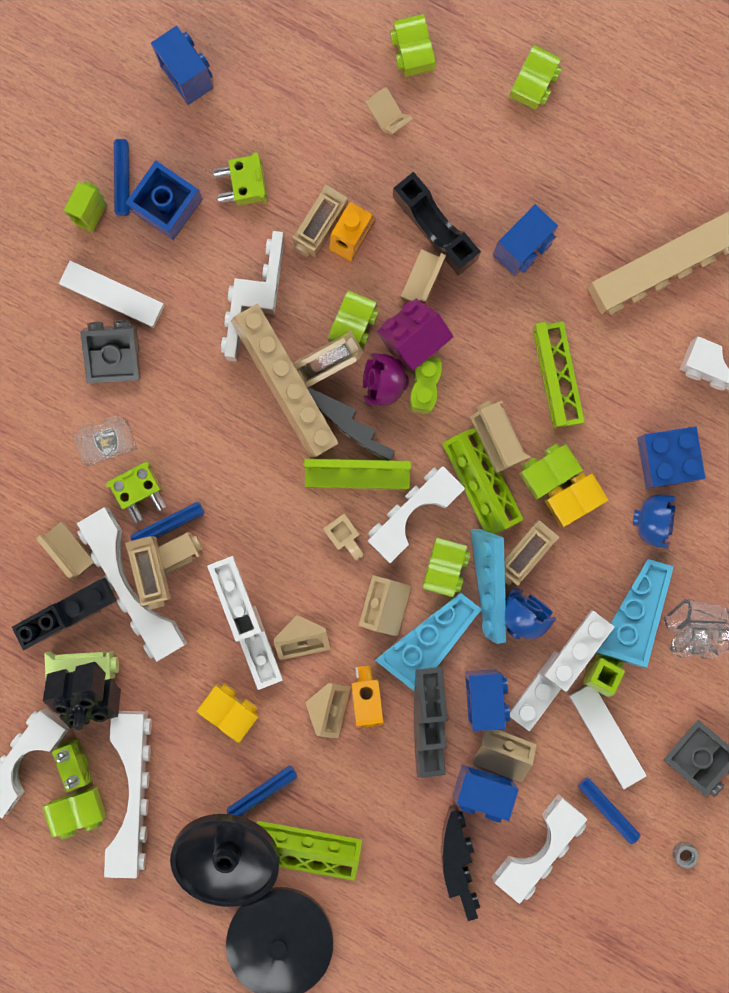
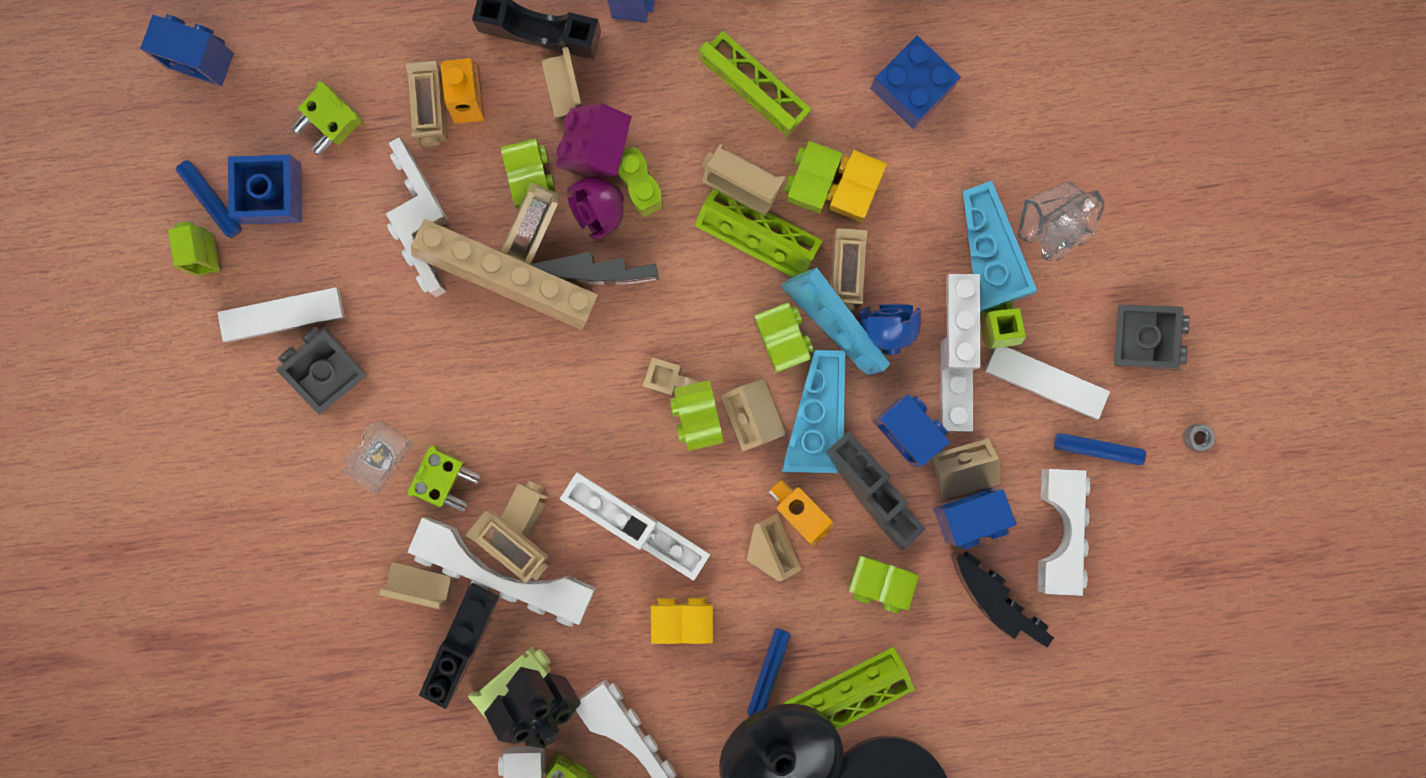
camera: 35 degrees left, 0 degrees up
(171, 522) = (497, 484): blue axle -> none
(301, 638) = (698, 503): tan slope -> none
(346, 577) = (697, 414): none -> lime brick
(357, 474) = (636, 311): lime fence -> none
(387, 790) = (882, 583): none -> lime brick
(438, 490) = (724, 271): white arch -> none
(655, 520) = (943, 150): blue cylinder -> none

